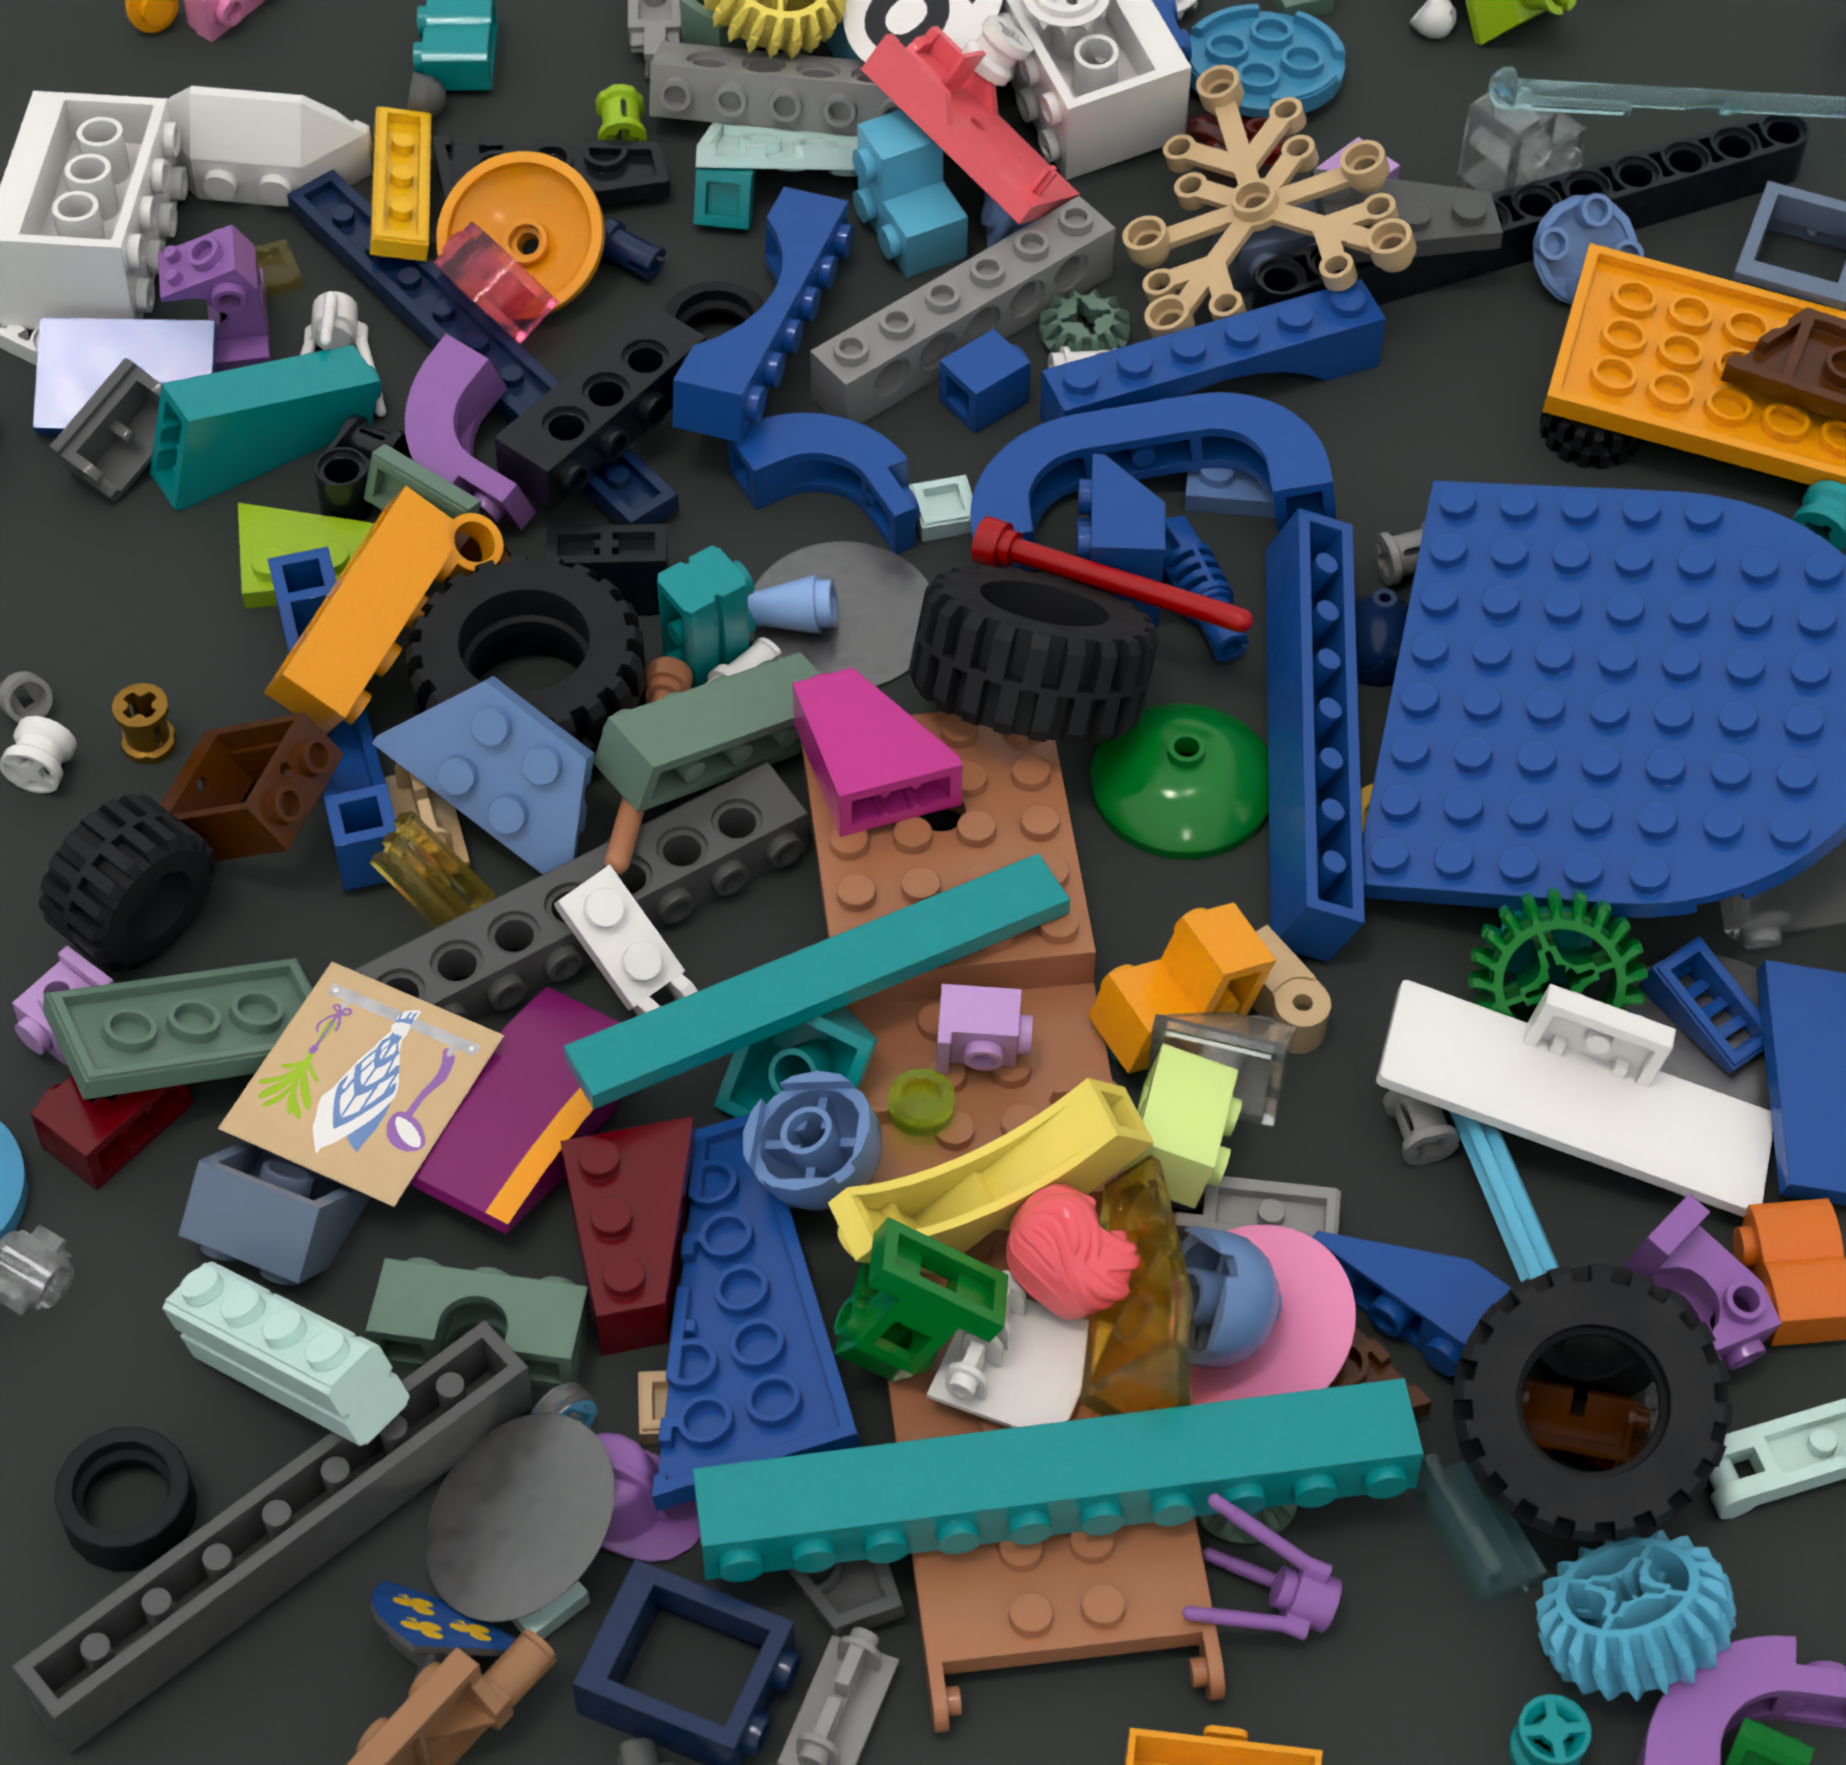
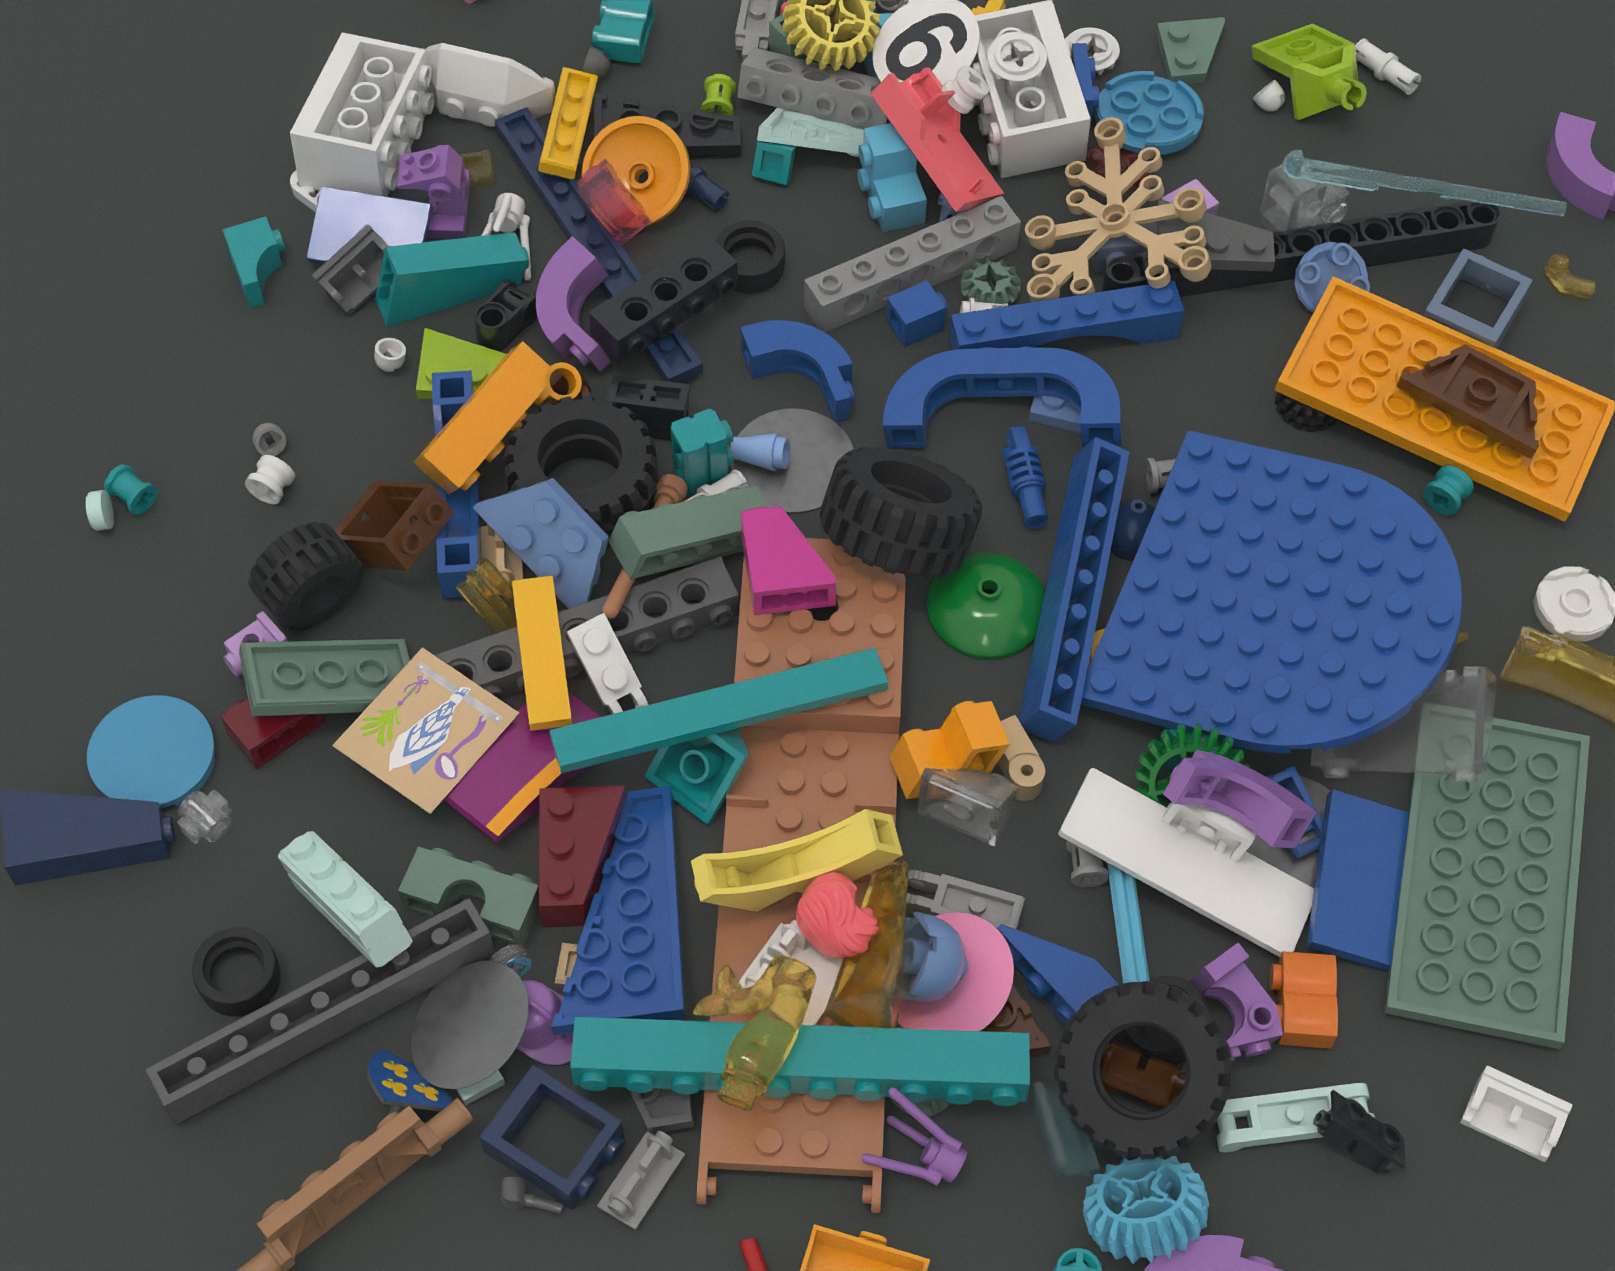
camera: 10 degrees right, 5 degrees up
(150, 714) = (344, 464): pearl gold bush -> none
(191, 548) = (394, 351): none -> white hinge
(269, 1213) = (354, 804): sand blue slope -> none
(393, 471) = (525, 328): sand green tile -> none
(522, 941) = (541, 653): none -> yellow tile
(728, 377) = (746, 291): blue arch -> none
(813, 1140) = (695, 815): medium blue cylinder -> none
(903, 1319) = (721, 935): green tile -> none
(921, 1102) = (770, 798): clear neon green tile -> none
(943, 507) = (870, 395): light aqua tile -> none
(981, 1027) = (816, 756): lavender brick -> none
(1000, 545) = (896, 433): red piece -> none
(1008, 1446) = (768, 1038): none -> clear yellow piece
(1122, 525) = (976, 441): blue slope -> none
(1187, 1113) = (931, 837): yellowish green brick -> none
(1645, 981) = (1241, 794): none -> medium lavender arch

